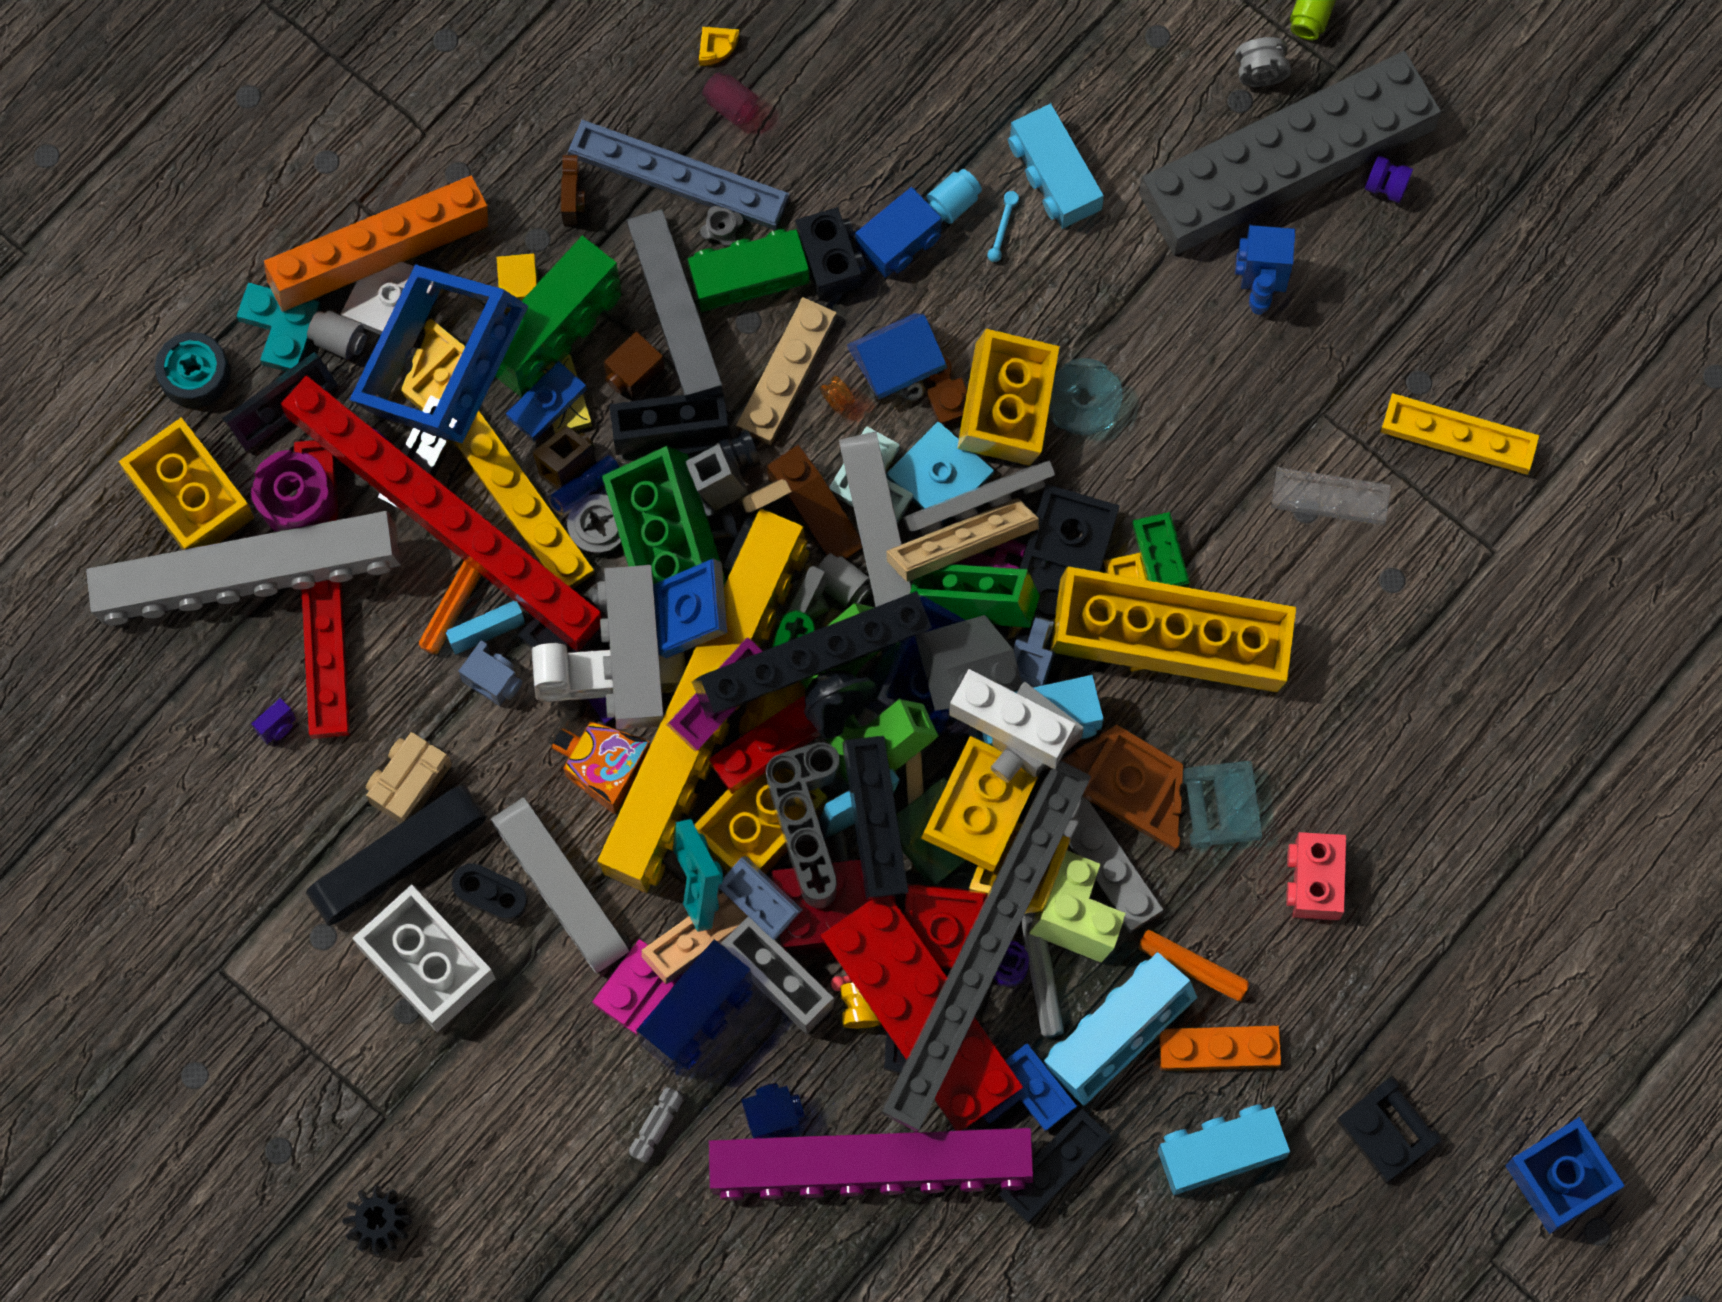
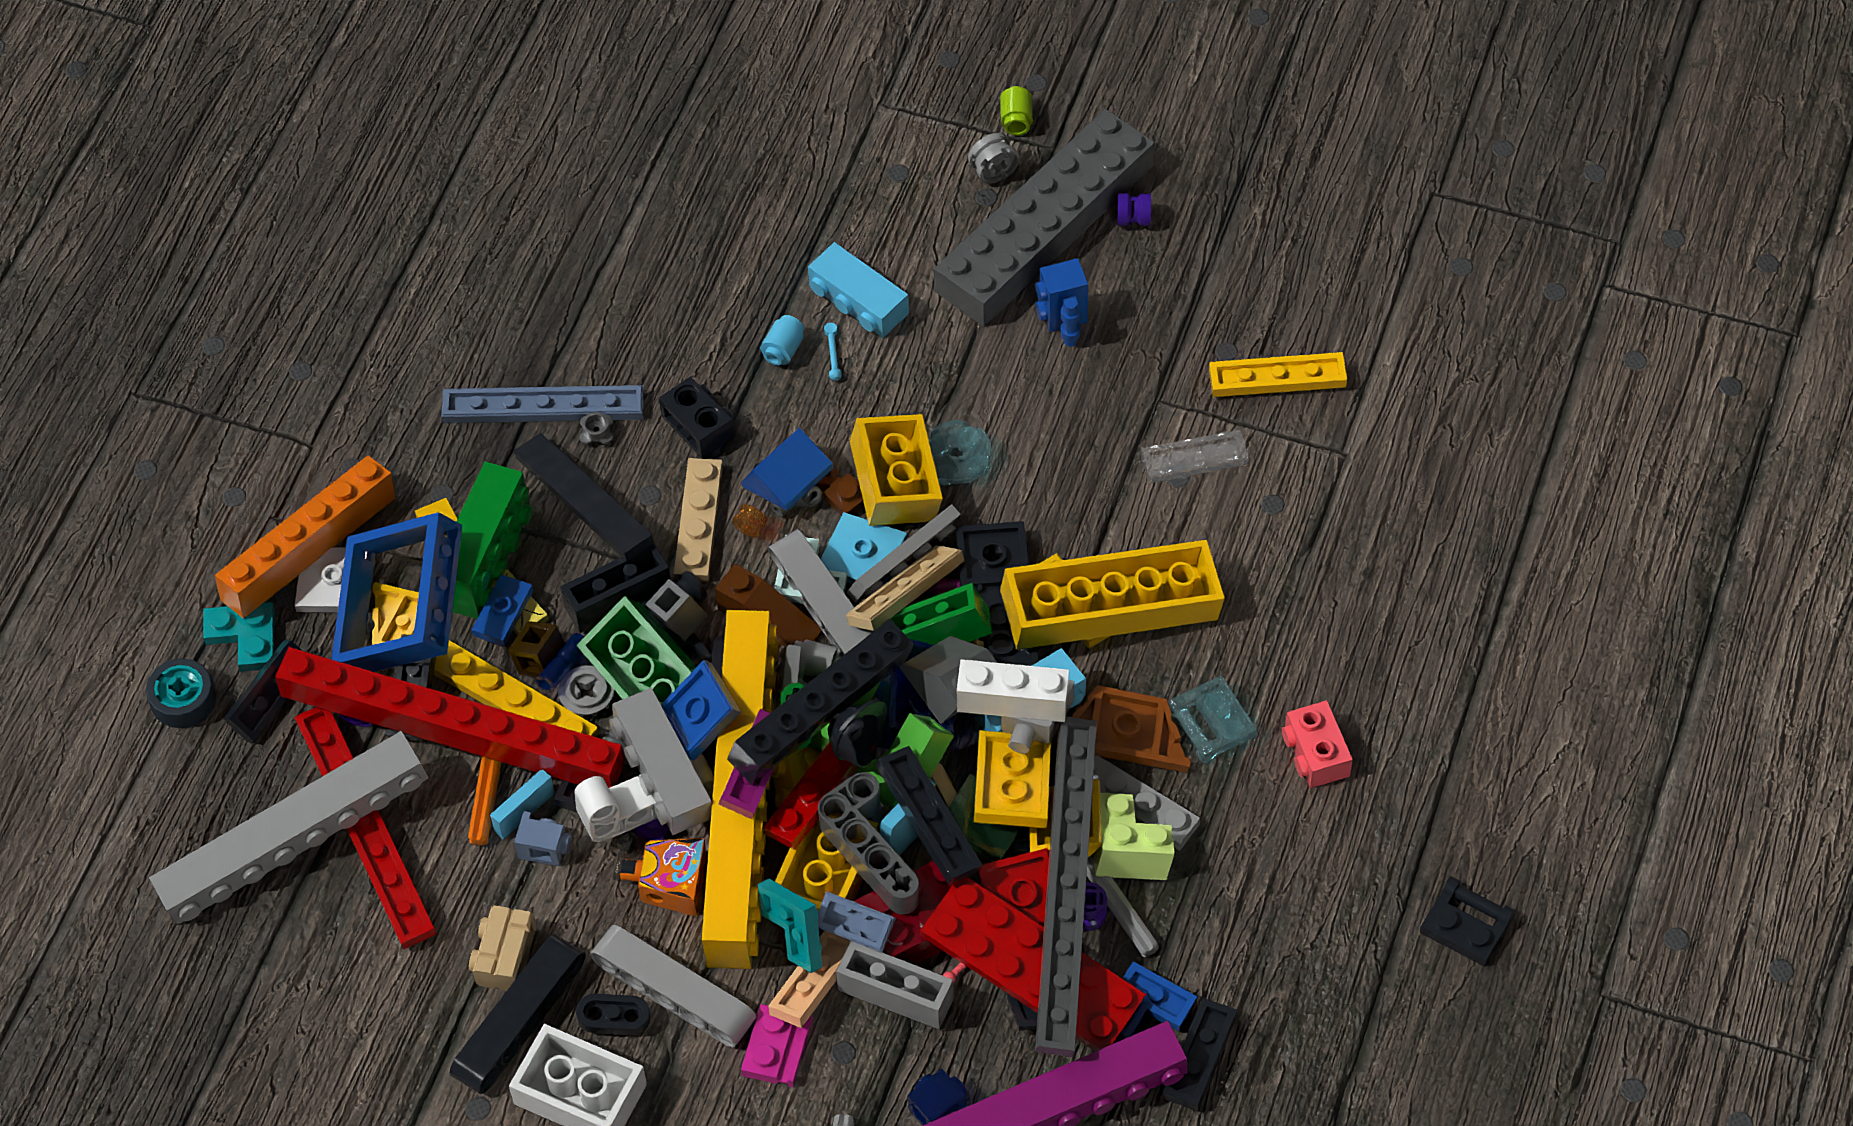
camera: 20 degrees left, 15 degrees down
(186, 487) = (212, 782): yellow brick -> none
(274, 722) = (365, 945): dark purple plate -> none
(282, 475) = (310, 746): magenta brick -> none
(337, 334) = (298, 621): light grey brick -> none
(572, 199) = (460, 449): reddish brown plate -> none
(633, 366) = (566, 556): reddish brown brick -> none
(696, 1008) = (836, 1035): clear blue brick -> none
(717, 44) = (534, 297): yellow tile -> none
(730, 98) = (564, 330): clear pink brick -> none
(748, 269) = (635, 451): green brick -> none
(764, 496) = (726, 601): tan tile -> none
(858, 1012) = (978, 990): yellow wheel -> none
(899, 233) = (749, 382): blue brick -> none
(1032, 656) = (1004, 651): sand blue plate -> none
(1120, 1028) = (1207, 920): medium azure brick -> none
(1160, 550) = (1068, 539): green plate -> none
(1195, 965) = (1245, 853): orange axle -> none
(1219, 1048) = (1296, 910): orange plate -> none
(1222, 1149) = (1336, 986): medium azure brick -> none
(1564, 1175) = (1629, 897): blue brick -> none

